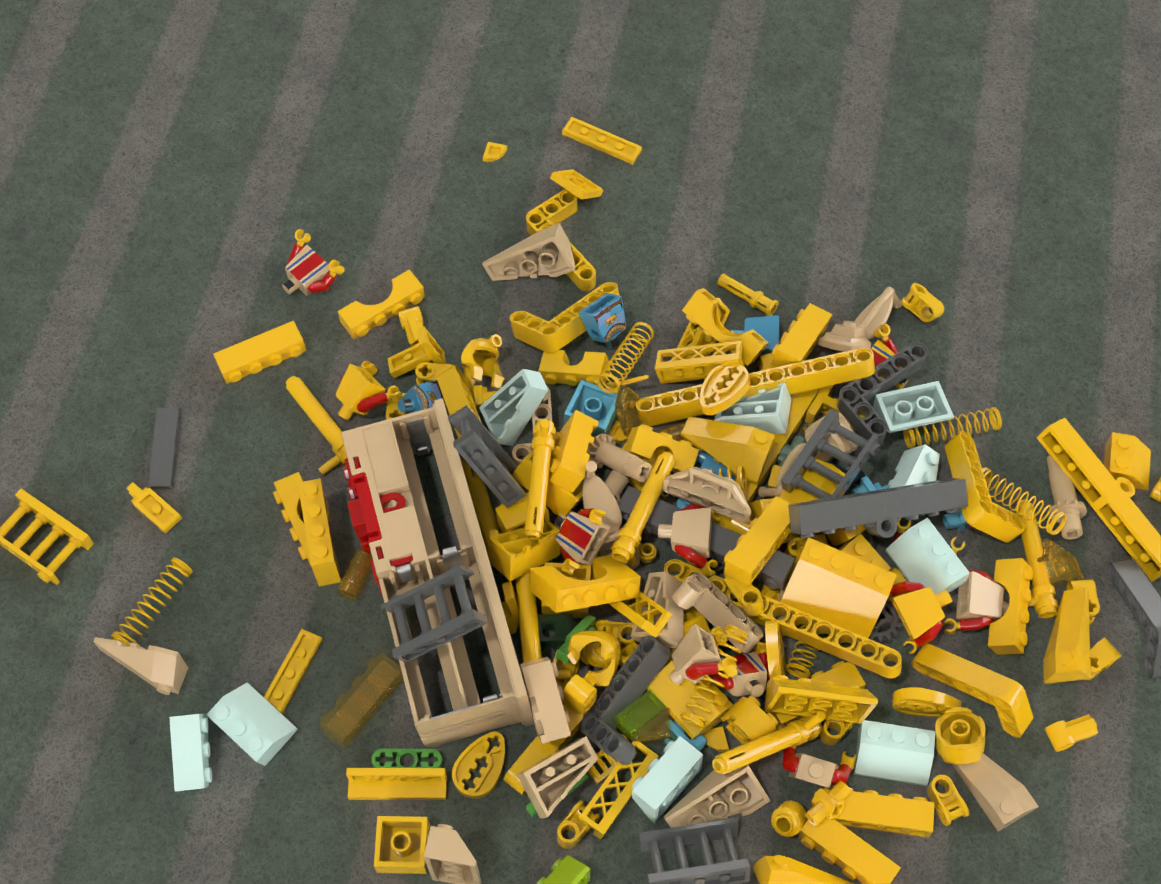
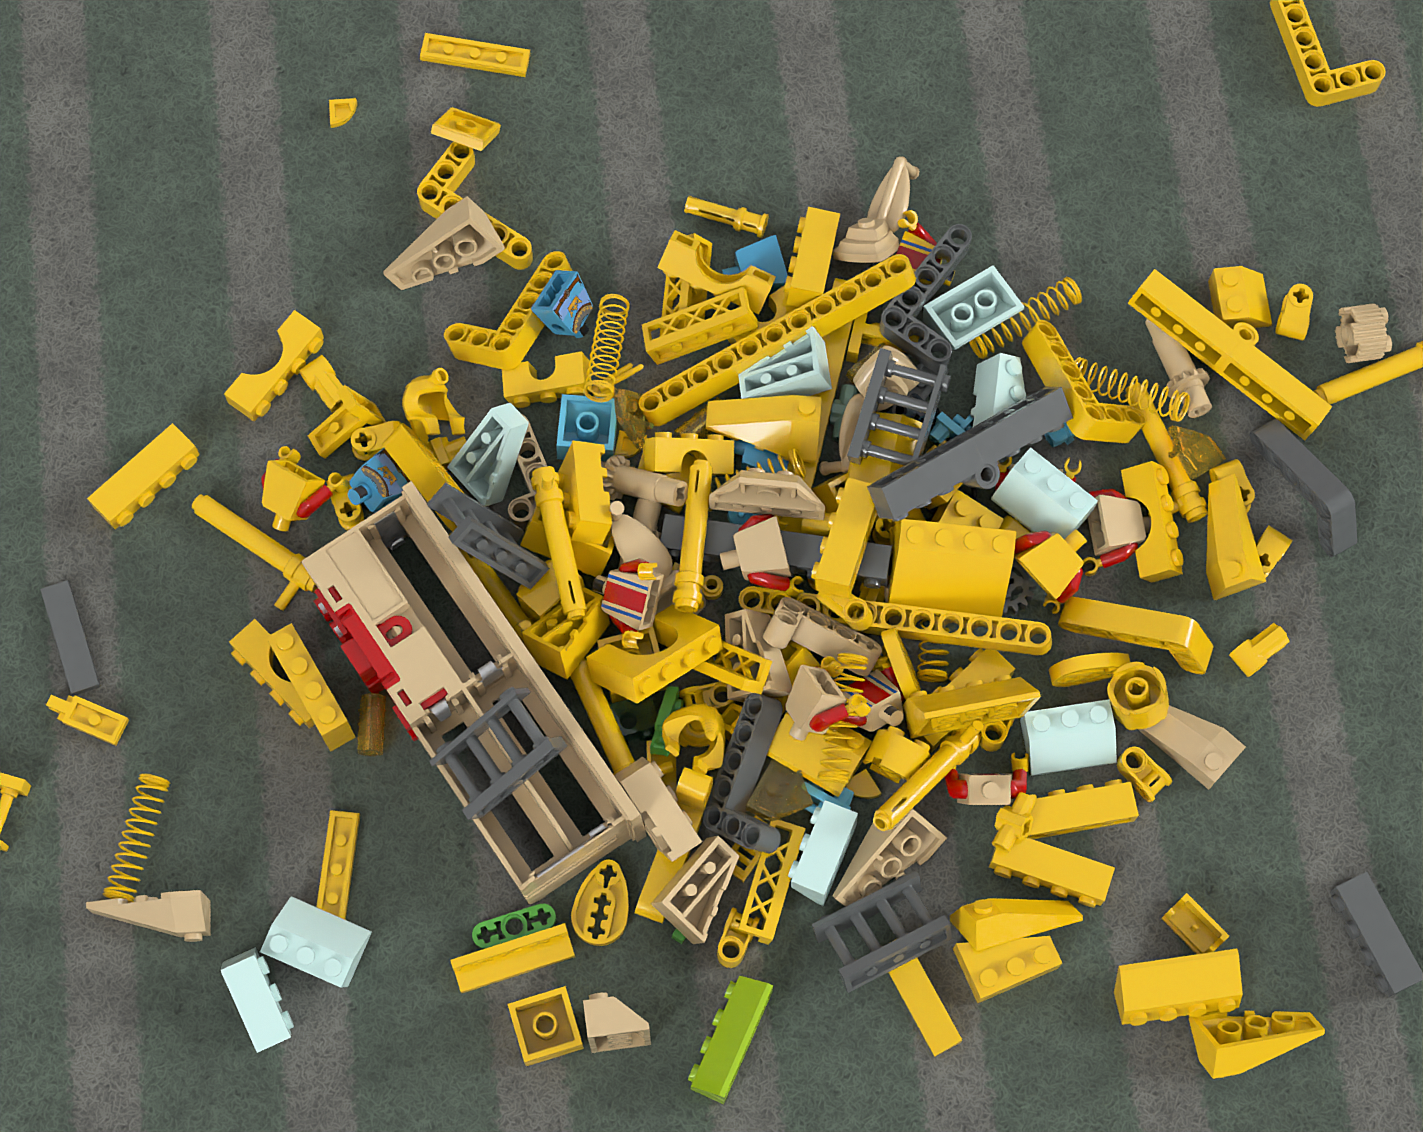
camera: 20 degrees left, 10 degrees up
(308, 270) = (163, 347): torso -> none
(362, 700) = (436, 873): clear yellow brick -> none
(510, 607) = (575, 705): yellow slope -> none
(639, 713) = (768, 787): clear neon green tile -> none
(714, 387) = (747, 367): yellow piece -> none
(774, 476) = (833, 447): yellow tile -> none
(788, 818) = (974, 852): yellow head -> none
(920, 300) = (943, 165): yellow piece -> none

